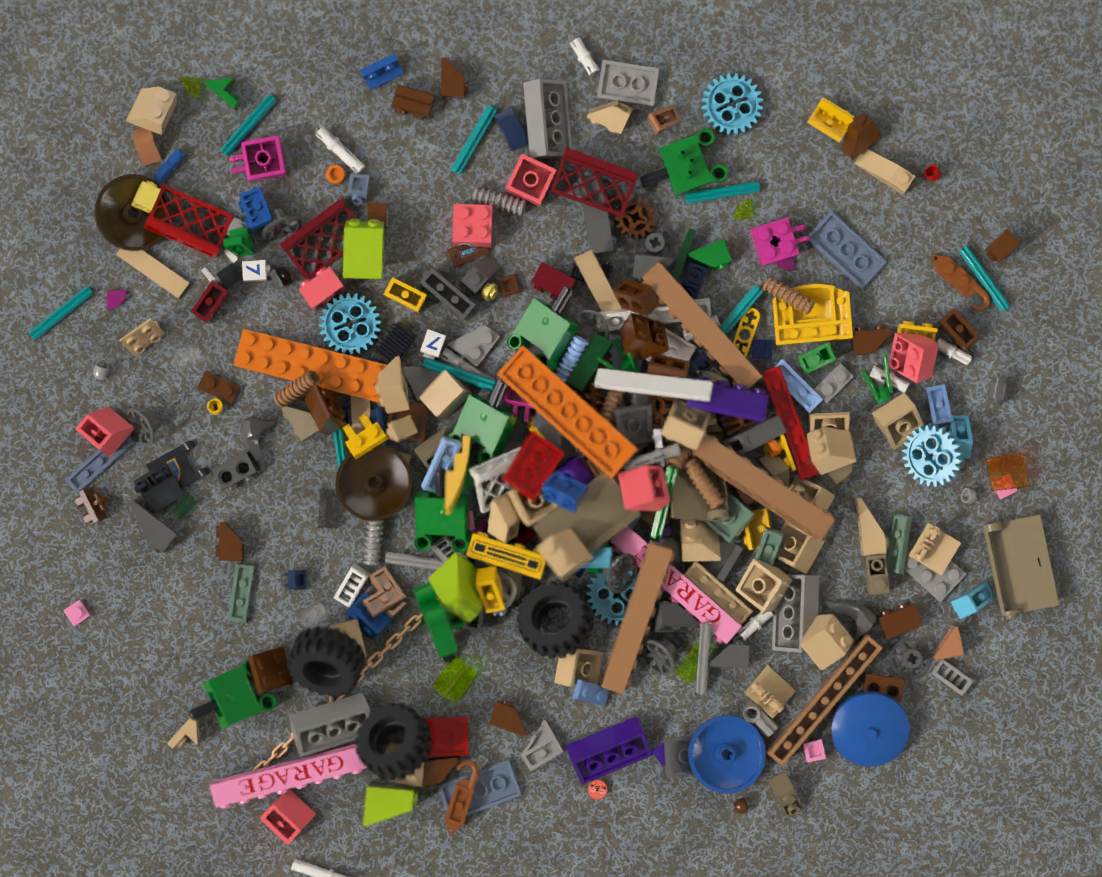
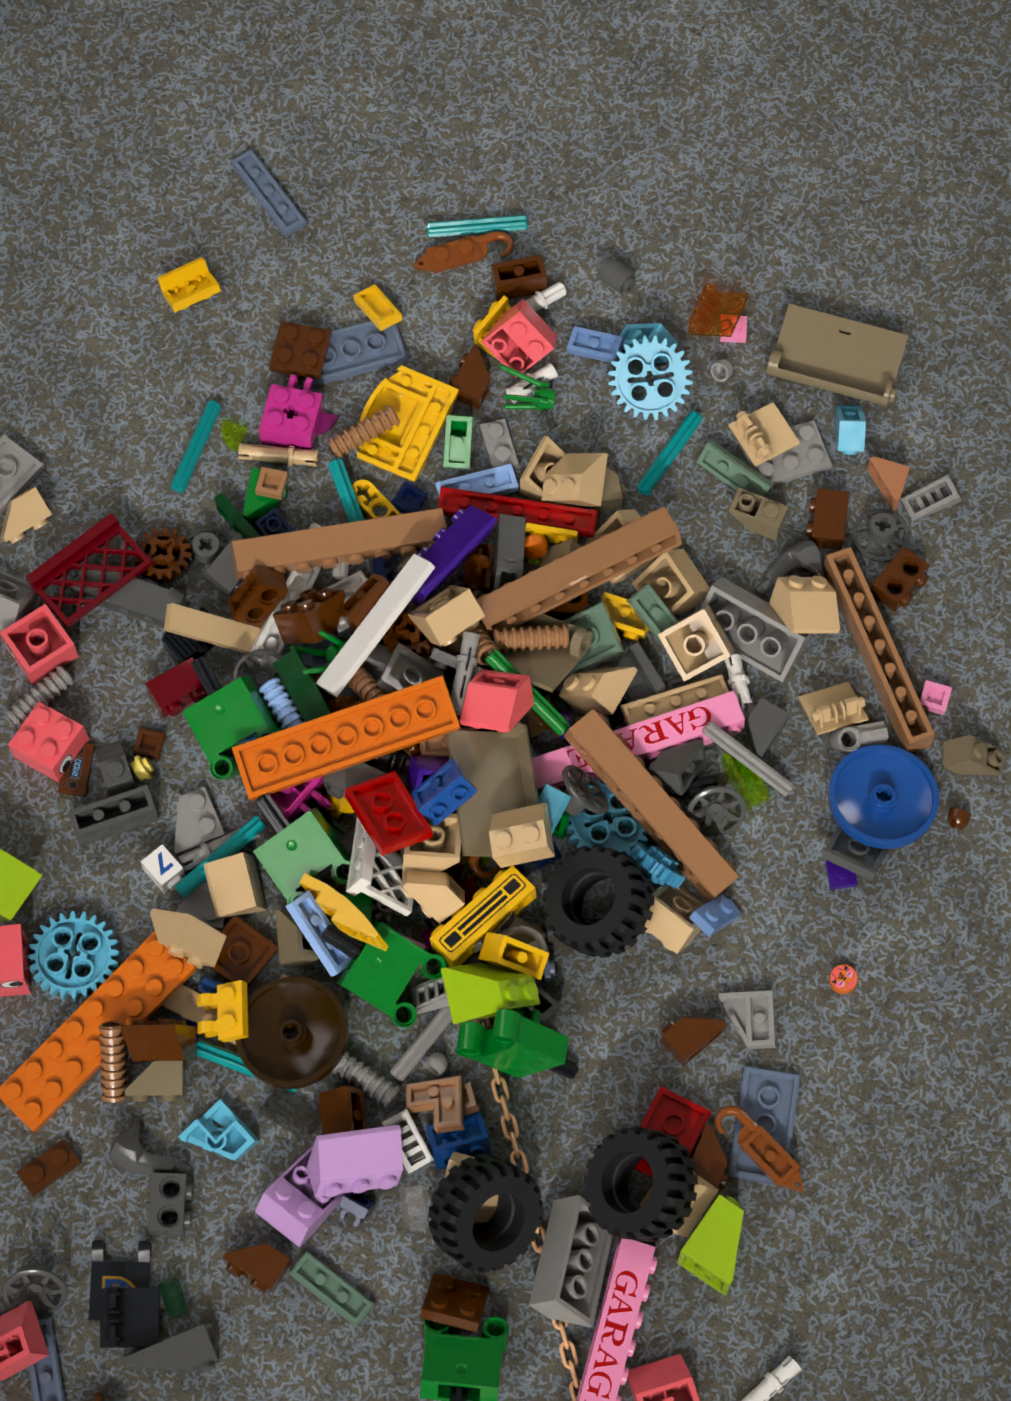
camera: 60 degrees left, 20 degrees down
(210, 406) = (72, 1178): yellow hinge -> none
(287, 547) = (292, 1205): none -> lavender slope
(293, 482) = (230, 1141): none -> medium azure slope
(315, 568) = (356, 1161): none -> lavender slope
(340, 542) = (342, 1110): none -> reddish brown brick
(396, 342) = (133, 913): black brick -> none
(401, 429) = (245, 958): tan slope -> none
(405, 295) = (81, 866): yellow brick -> none
(407, 576) = (436, 1064): none -> light grey hinge
(455, 680) = (603, 1077): clear neon green panel -> none
(601, 641) = (658, 865): none -> dark azure gear
(608, 750) = (801, 935): dark purple slope -> none
(664, 119) = (67, 464): nougat slope -> none
(685, 165) = (138, 465): green piece -> none
(717, 259) = (271, 483): none -> medium nougat plate
(724, 88) = (123, 382): medium azure gear -> none
(746, 249) = (278, 454): none -> tan pin
(825, 219) = (300, 350): none -> reddish brown plate
(859, 136) = (228, 264): reddish brown slope -> none
(870, 729) = (943, 617): blue dish -> none
(871, 535) = (702, 495): tan slope -> none
(885, 170) = (286, 260): tan slope -> none
(886, 249) = (377, 307): none -> yellow tile
(890, 494) = (669, 453): none -> teal axle
(898, 420) = (587, 396): tan slope -> none
(928, 171) = (319, 211): red hinge -> none
(930, 128) = (268, 193): none -> sand blue tile
(1002, 246) = (451, 182): reddish brown slope -> none

